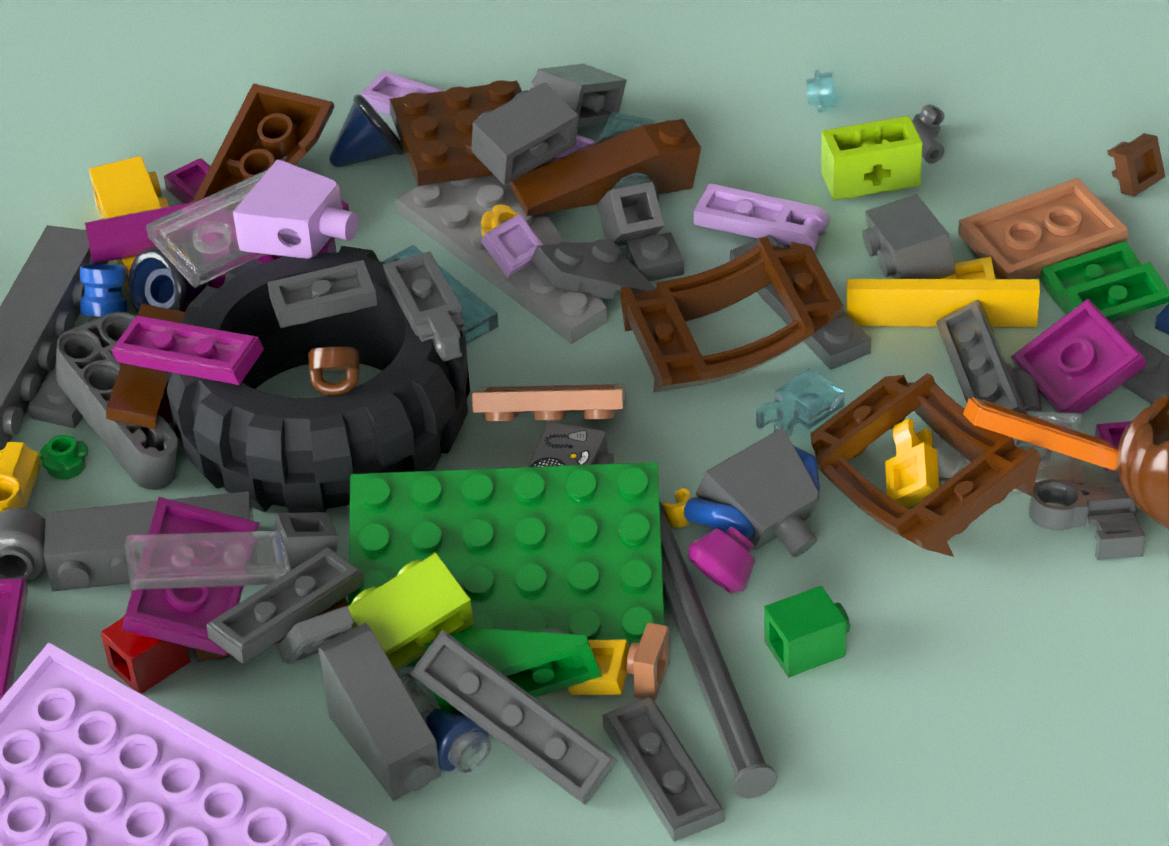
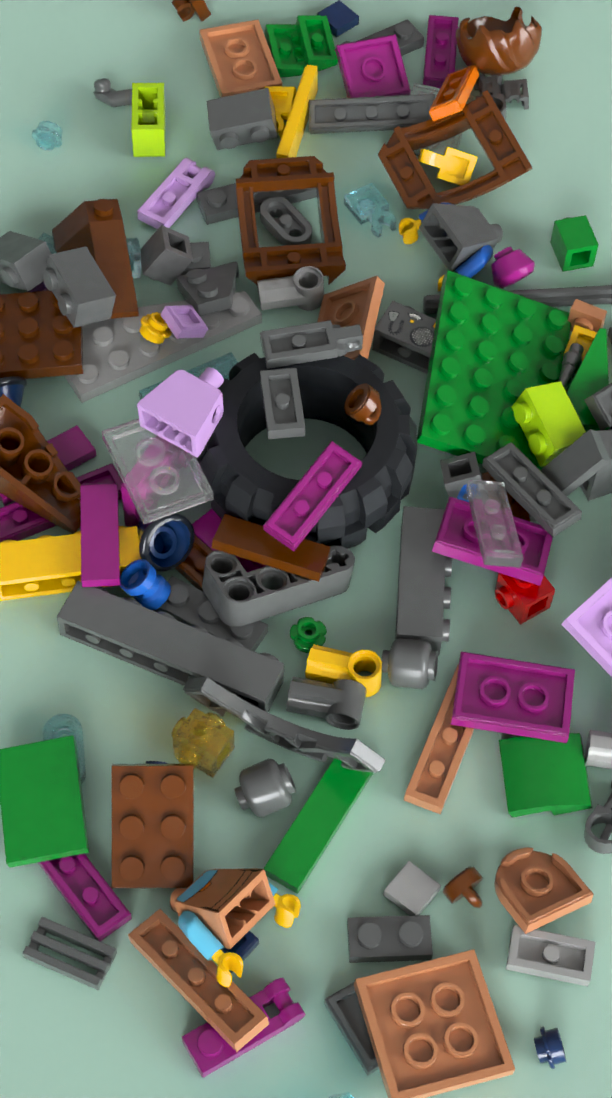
camera: 85 degrees left, 15 degrees up
(616, 347) = (302, 289): none -> light grey piece
(743, 322) = (290, 226): none -> dark grey plate

